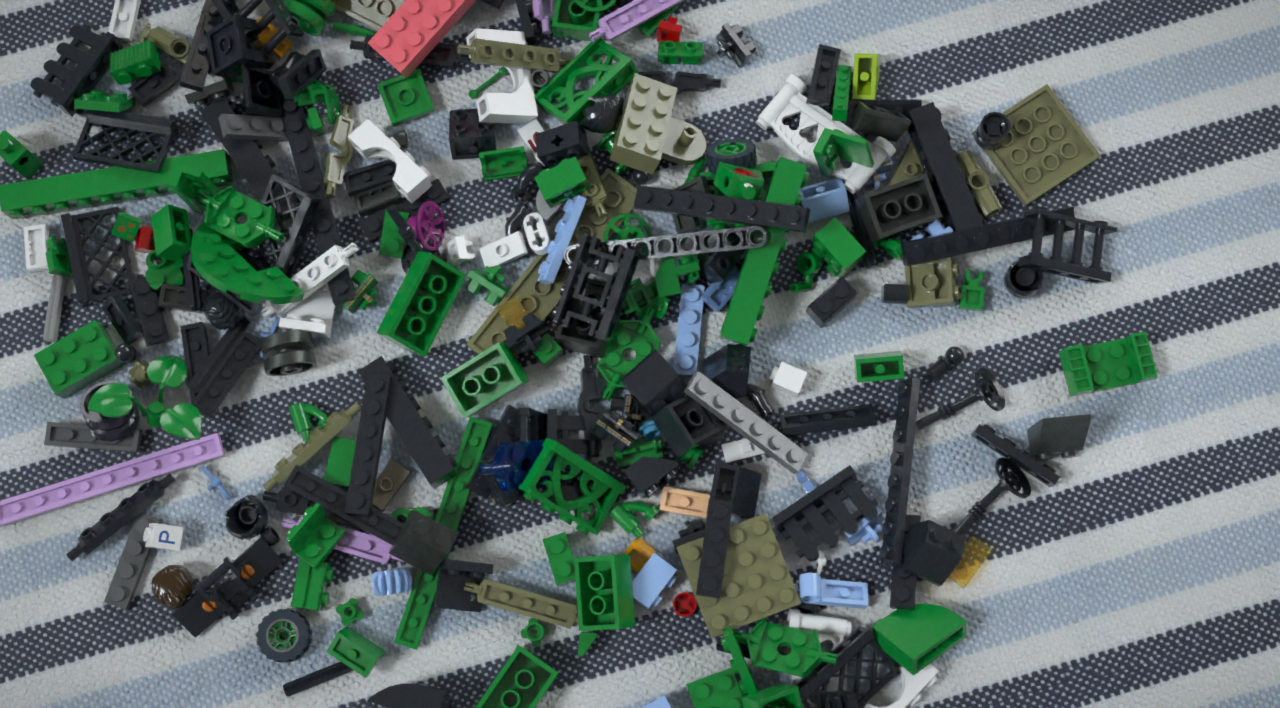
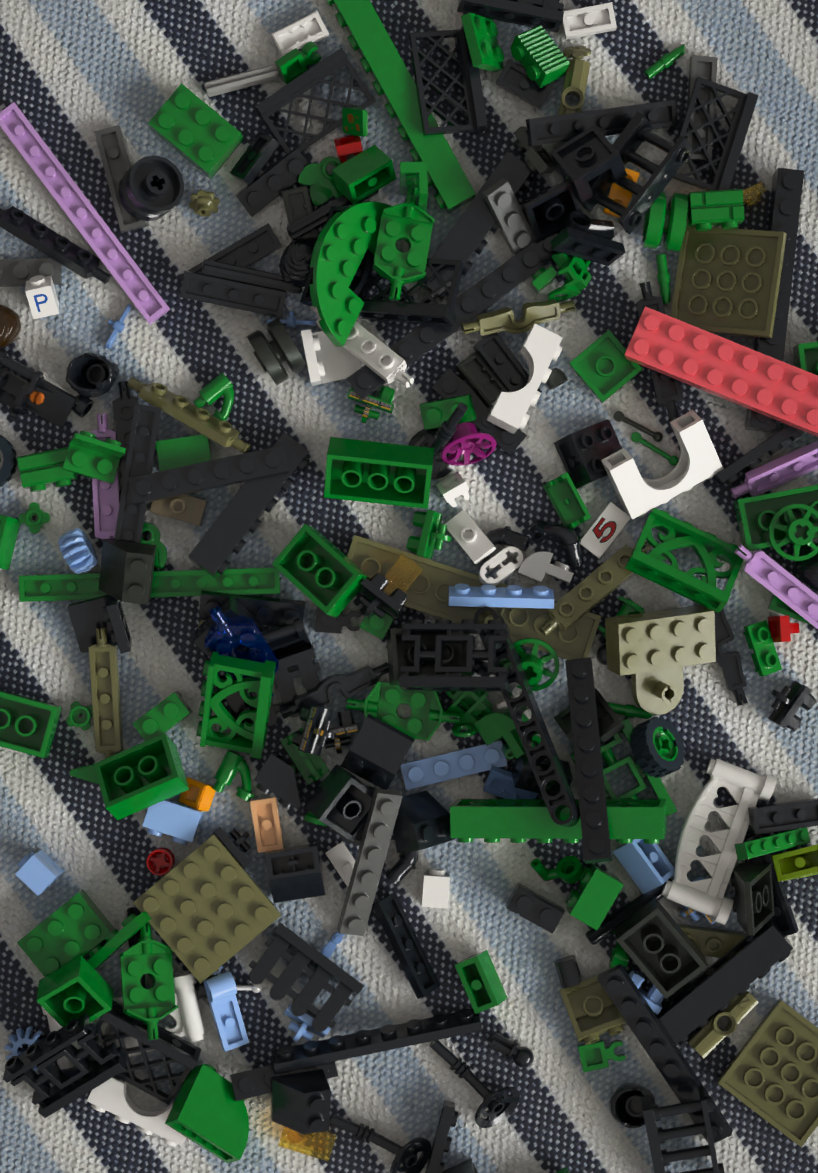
camera: 65 degrees right, 10 degrees up
(127, 353) = (217, 180): black axle -> none
(171, 370) = (215, 232): green plant -> none
(451, 101) = (619, 416): none -> pearl dark grey hinge
(514, 55) = (688, 472): olive plate -> none
(532, 390) = (330, 624): none -> black plate
(536, 82) = (670, 505): pearl dark grey hinge -> none
(561, 143) = (605, 559): black brick -> none
(562, 181) = (563, 575): green brick -> none
(603, 114) = (655, 594): black hair -> none
(649, 430) = (329, 760): dark azure plate -> none
(714, 548) = (223, 875): black plate -> none
(742, 183) = (625, 769): green torso -> none
(837, 145) = (703, 856): green bracket -> none
(992, 130) = (784, 1022): black wheel -> none

